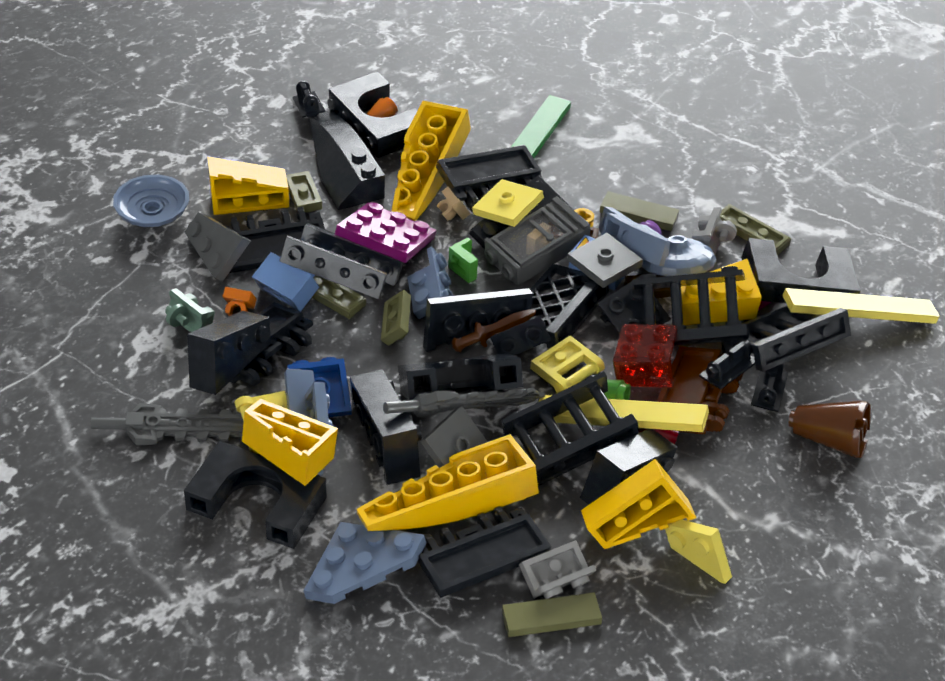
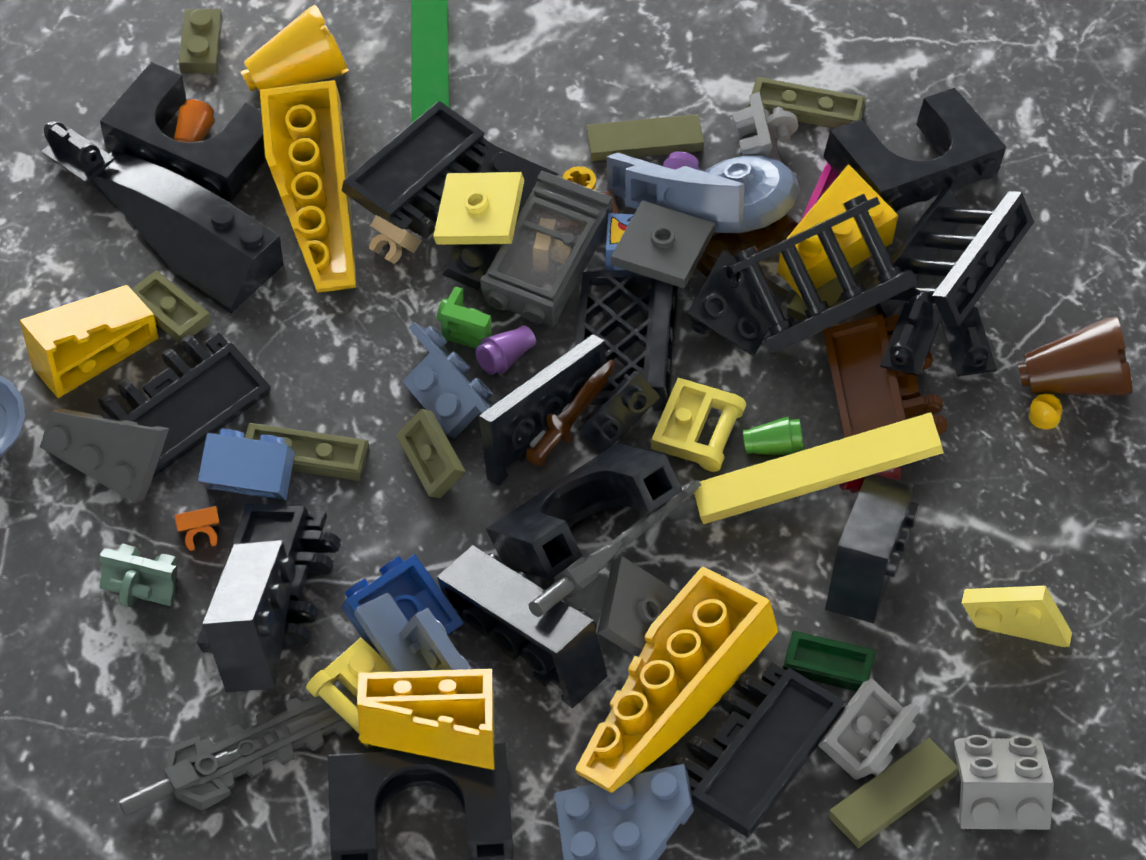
camera: 25 degrees left, 10 degrees up
(341, 261) = (312, 401): black fence -> none
(386, 231) = (336, 325): magenta plate -> none
(416, 76) = (200, 41): none -> olive plate
(466, 93) = (296, 55): none -> yellow cone
(476, 283) = (502, 350): none -> medium lavender cone
(560, 524) = (829, 660): none -> dark green tile
(576, 453) = (811, 525): black fence -> none
(623, 639) = (1004, 783): none -> light grey bracket
(636, 506) = (920, 598): yellow wedge -> none
(645, 355) = (797, 365): clear red bracket -> none
(793, 446) = (1045, 411): none -> yellow hinge
(861, 305) = (1015, 169): tile -> none

